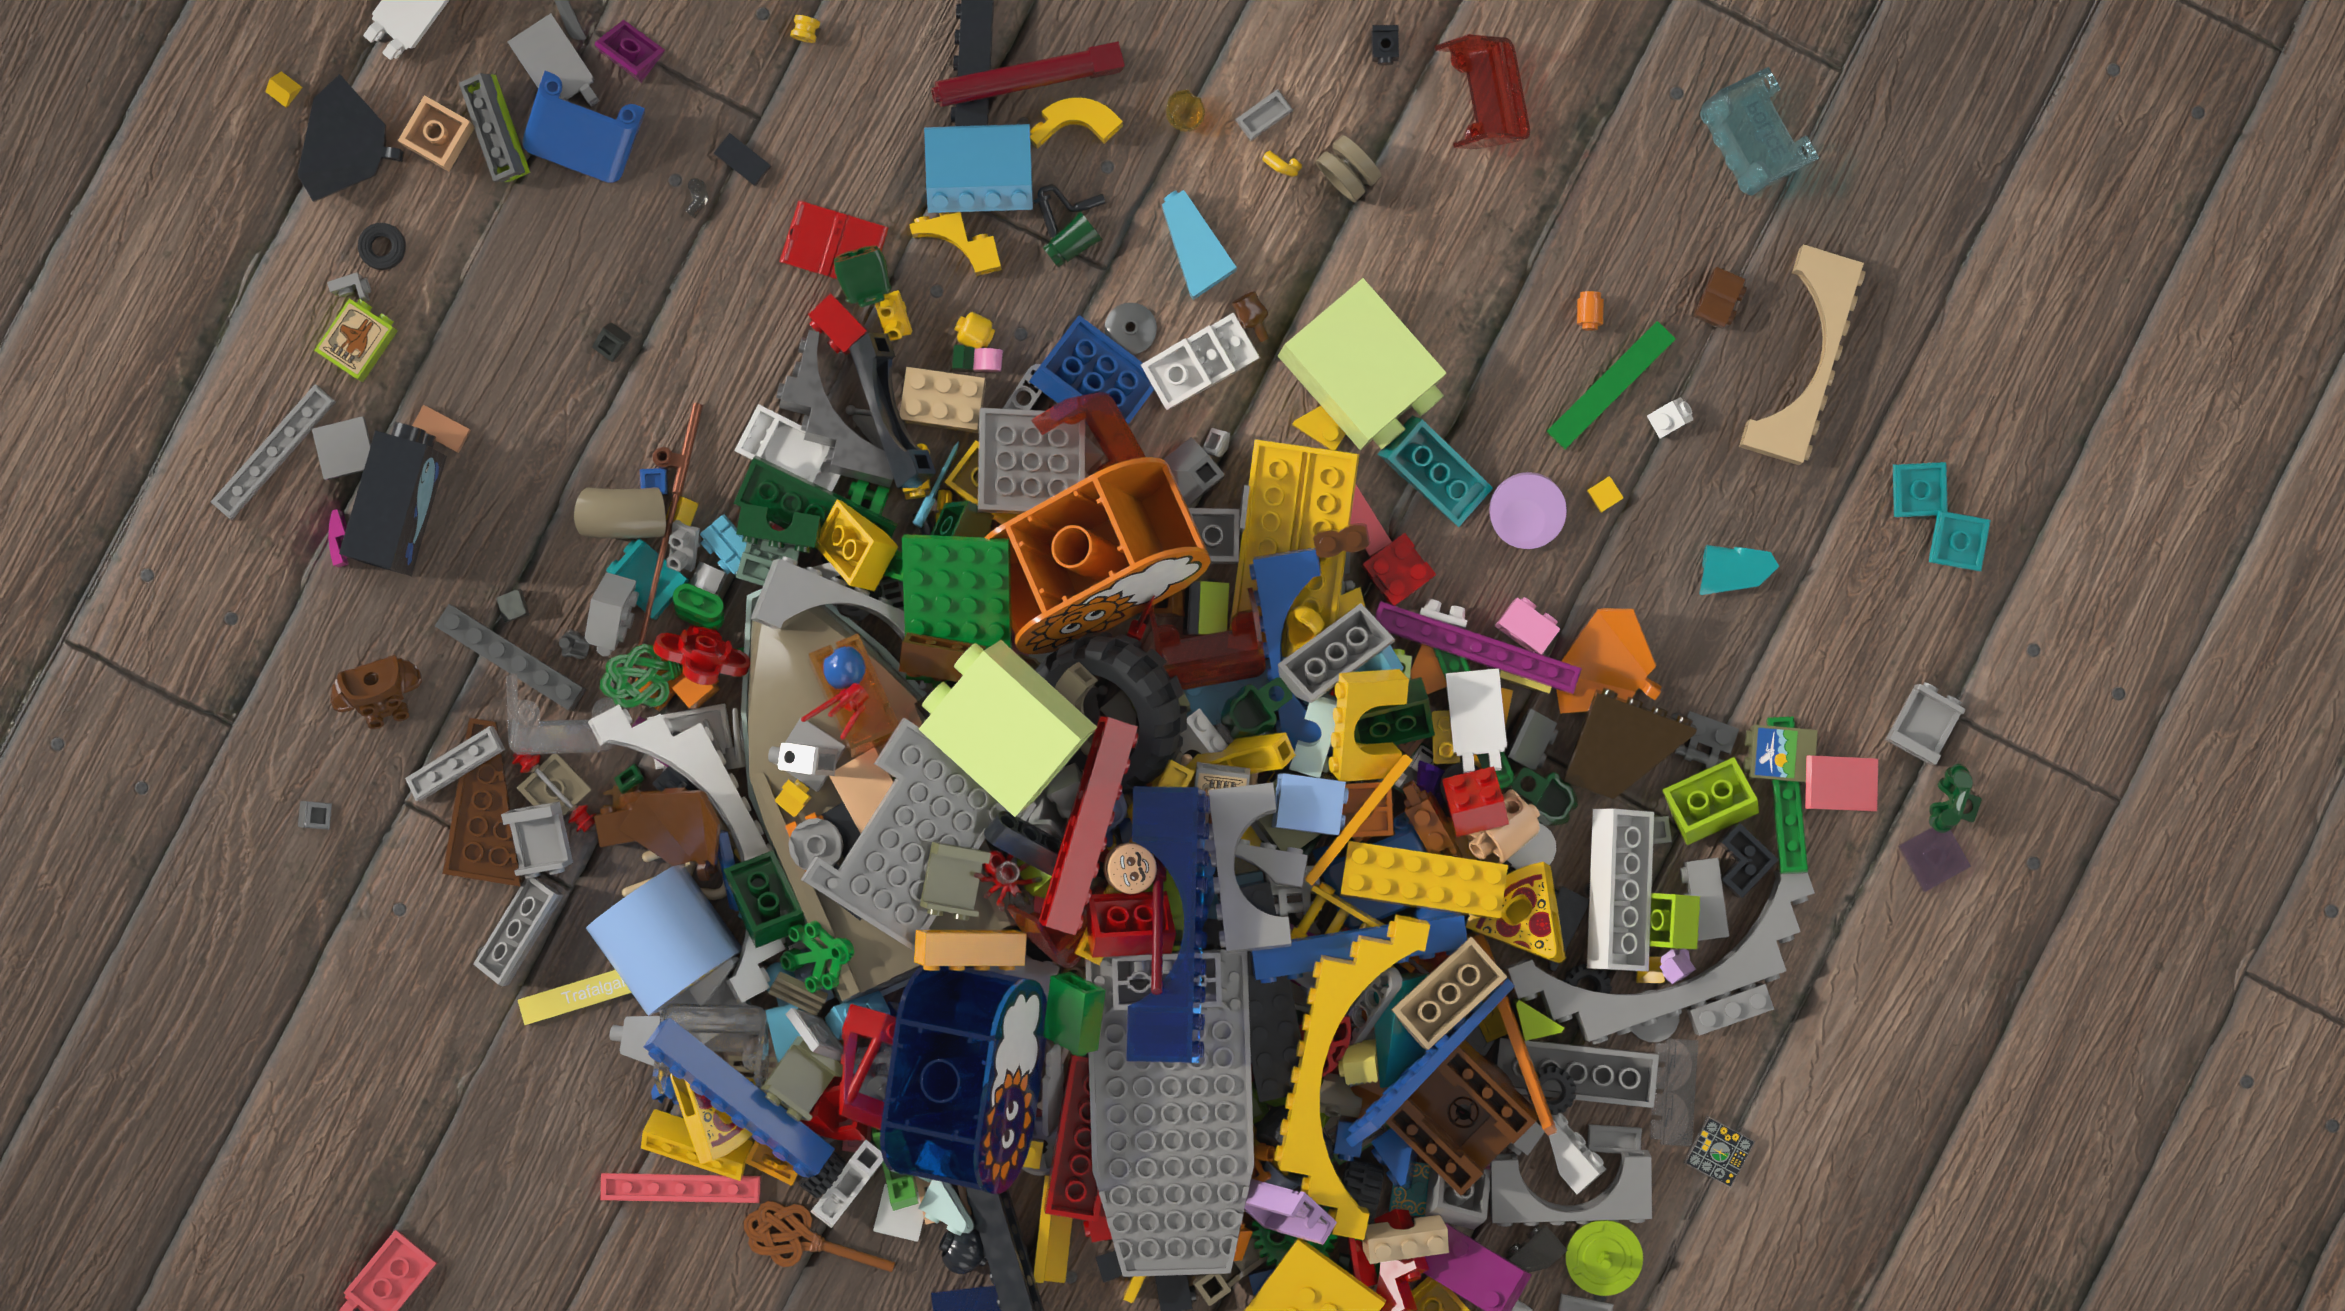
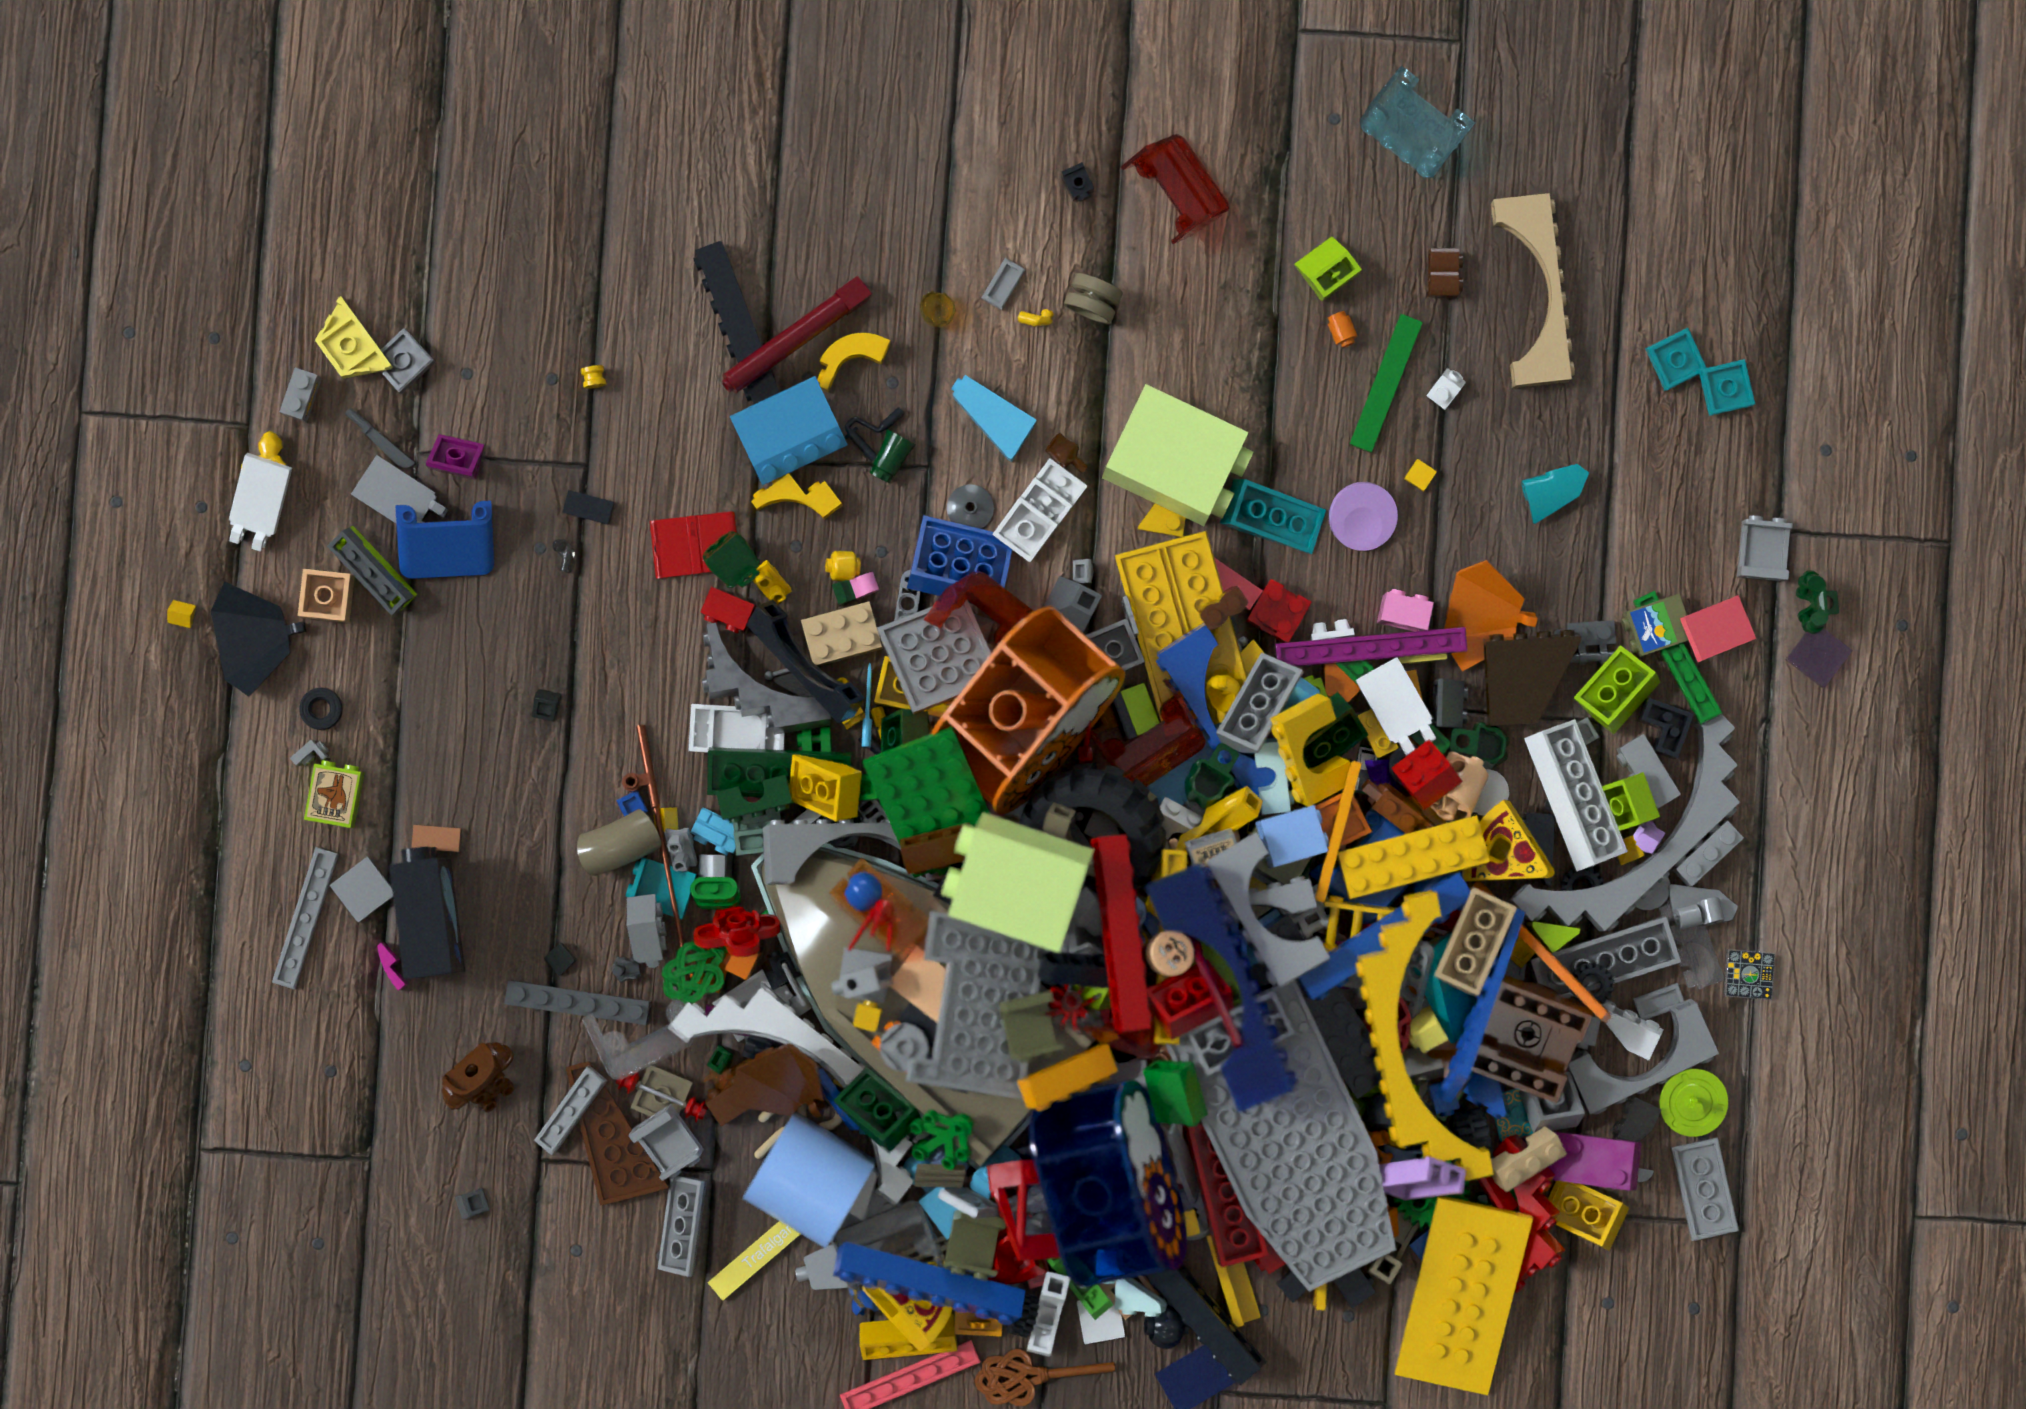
camera: 25 degrees left, 0 degrees up
(723, 712) = (774, 971): none -> black brick
(1603, 242) = (1328, 268): none -> lime slope
(1698, 1060) = (1699, 906): none -> light grey panel

